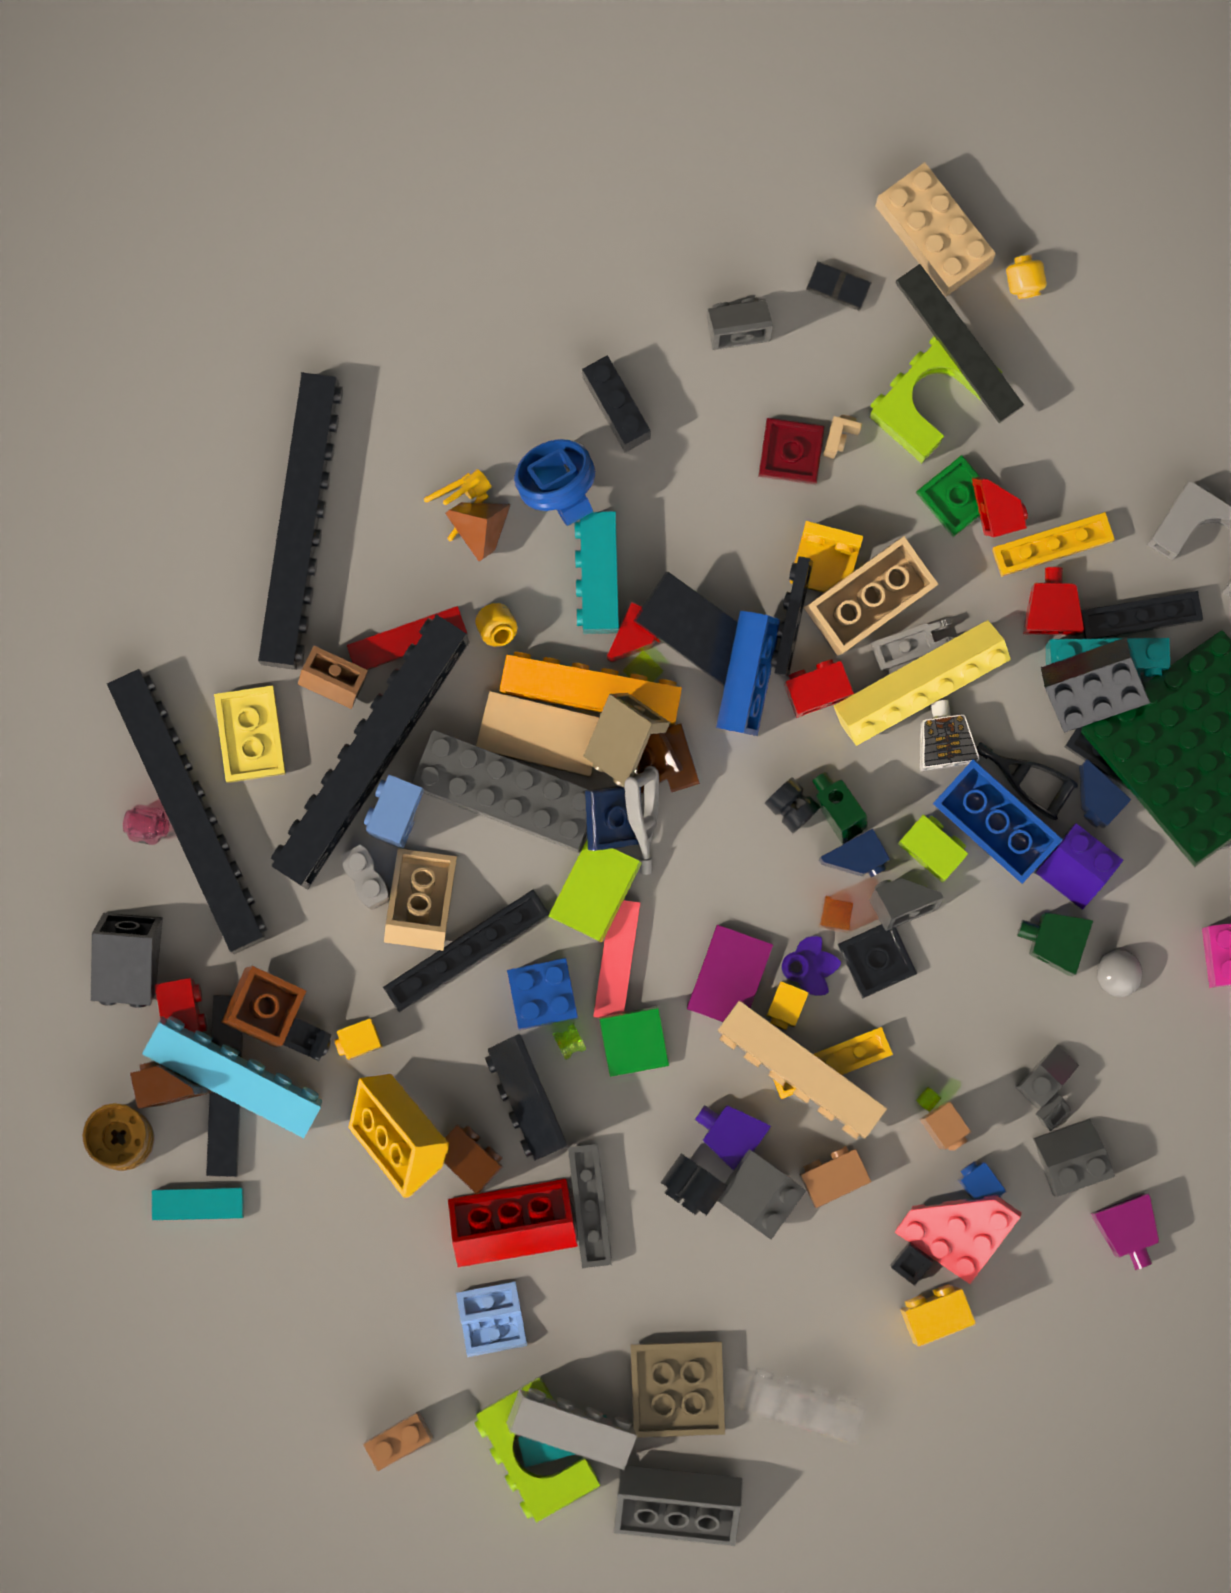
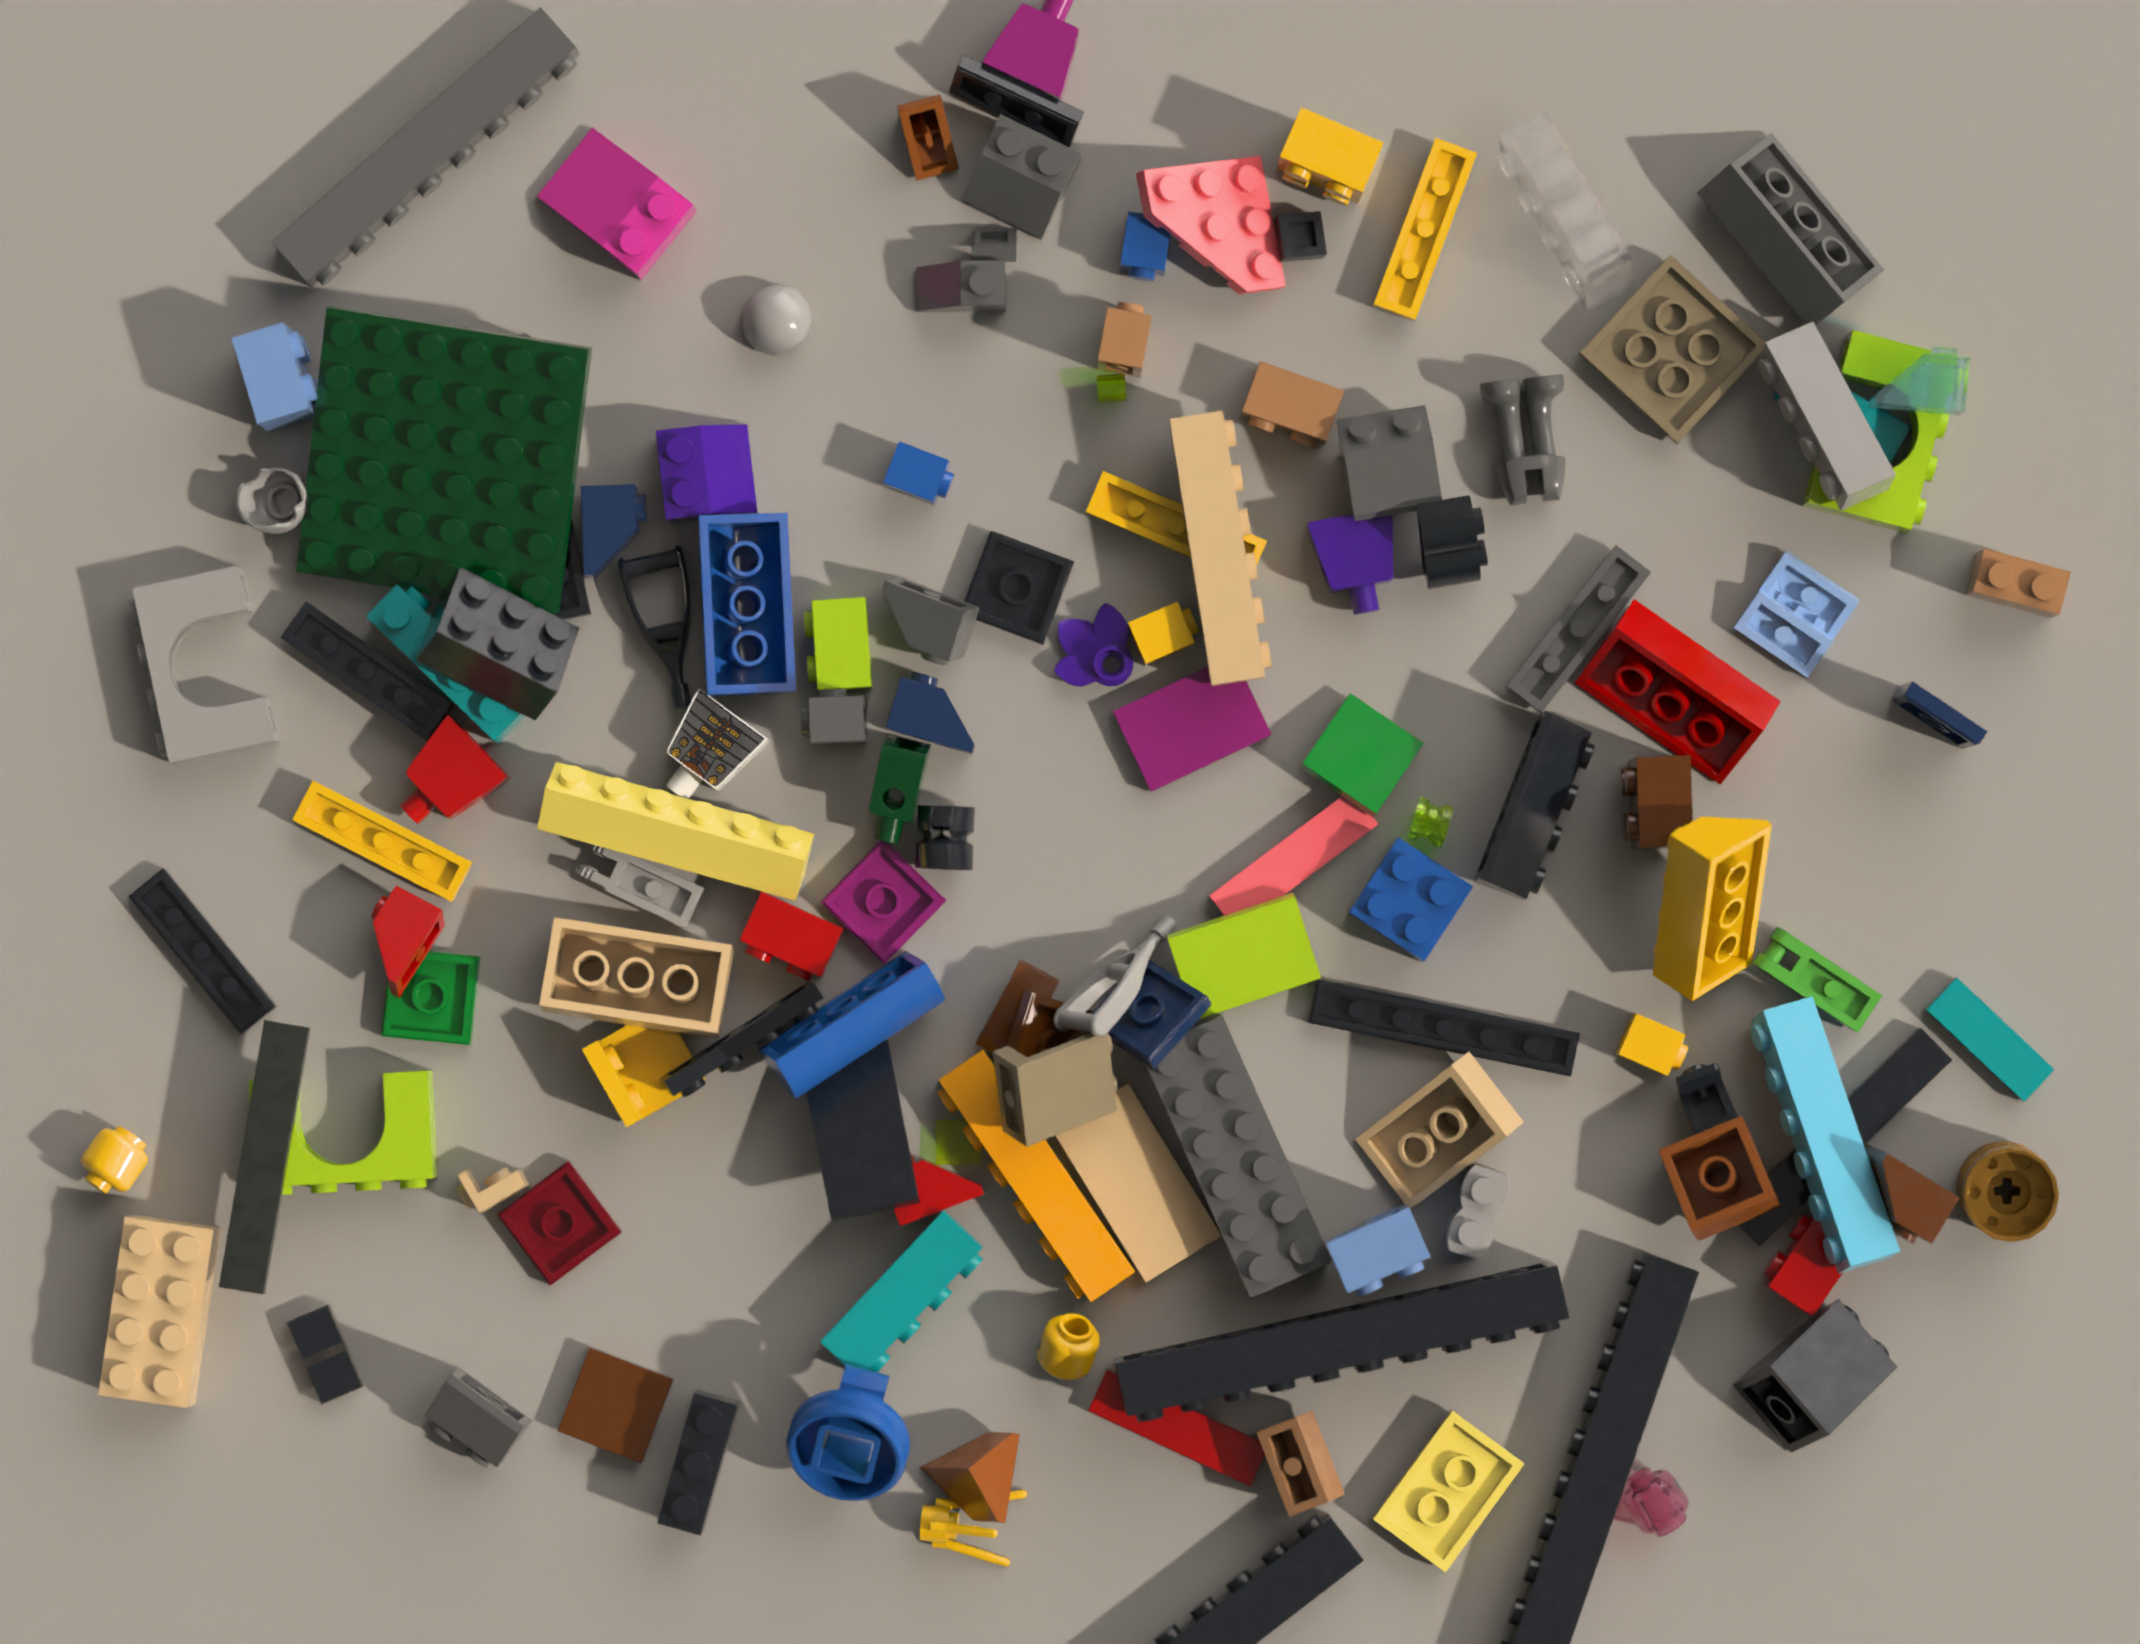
camera: 135 degrees left, 5 degrees up
(307, 1151) = (1816, 976): none -> bright green plate
(374, 1336) = (1938, 715): none -> dark blue tile
(536, 1494) = (1928, 385): none -> clear light blue slope
(681, 394) = (615, 1404): none -> reddish brown tile
(697, 1249) = (1505, 399): none -> dark grey piece
(791, 748) = (883, 901): none -> magenta tile
(835, 915) = (1014, 676): clear orange panel -> none
(855, 1327) = (1425, 229): none -> yellow plate
(900, 808) = (835, 719): none -> dark grey brick
(978, 965) = (918, 474): none -> blue brick
(1057, 940) = (808, 417): dark green torso -> none
(1083, 413) = (203, 951): none -> black tile
(1112, 1192) = (1015, 100): none -> black tile
(1137, 1132) = (928, 137): none -> dark orange slope

